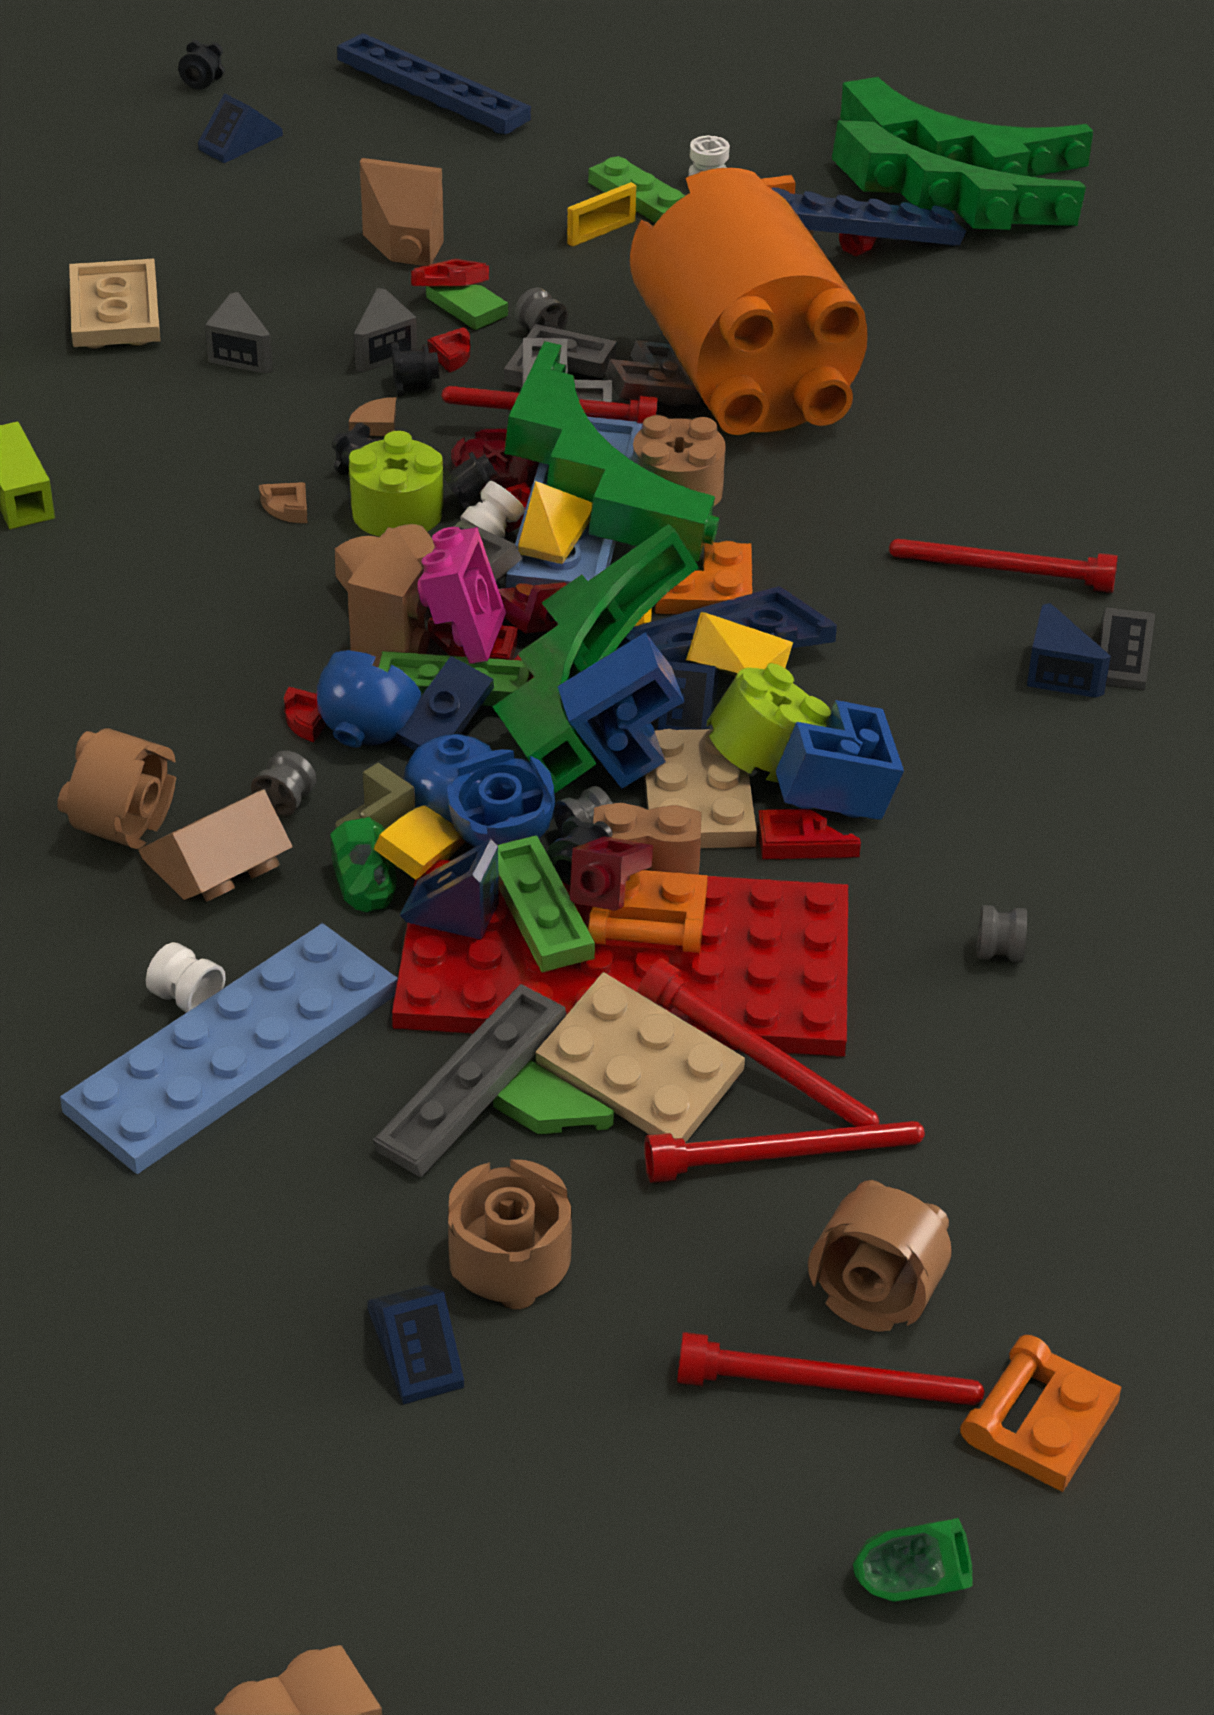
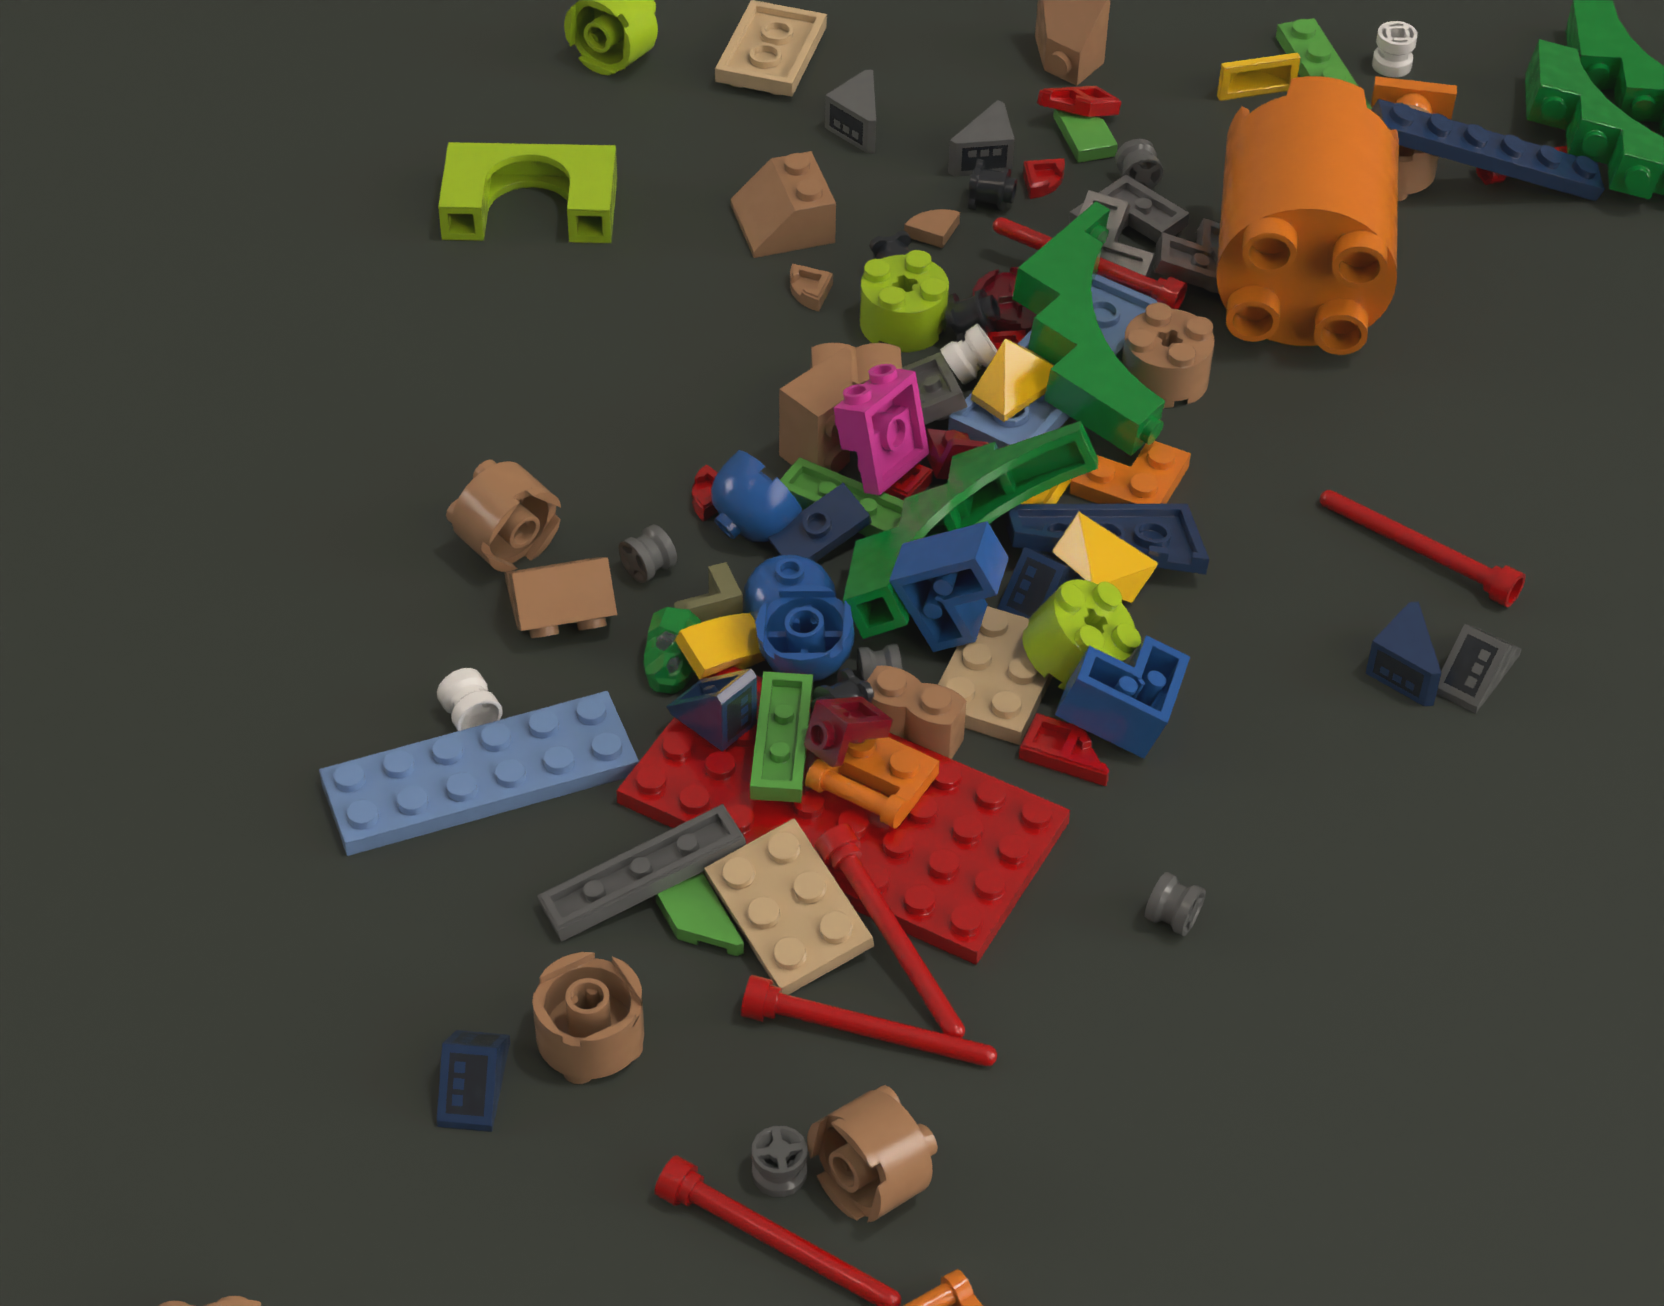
camera: 25 degrees right, 5 degrees up
(222, 435) = (786, 206): none -> medium nougat slope
(793, 1293) = (786, 1149): none -> dark grey wheel

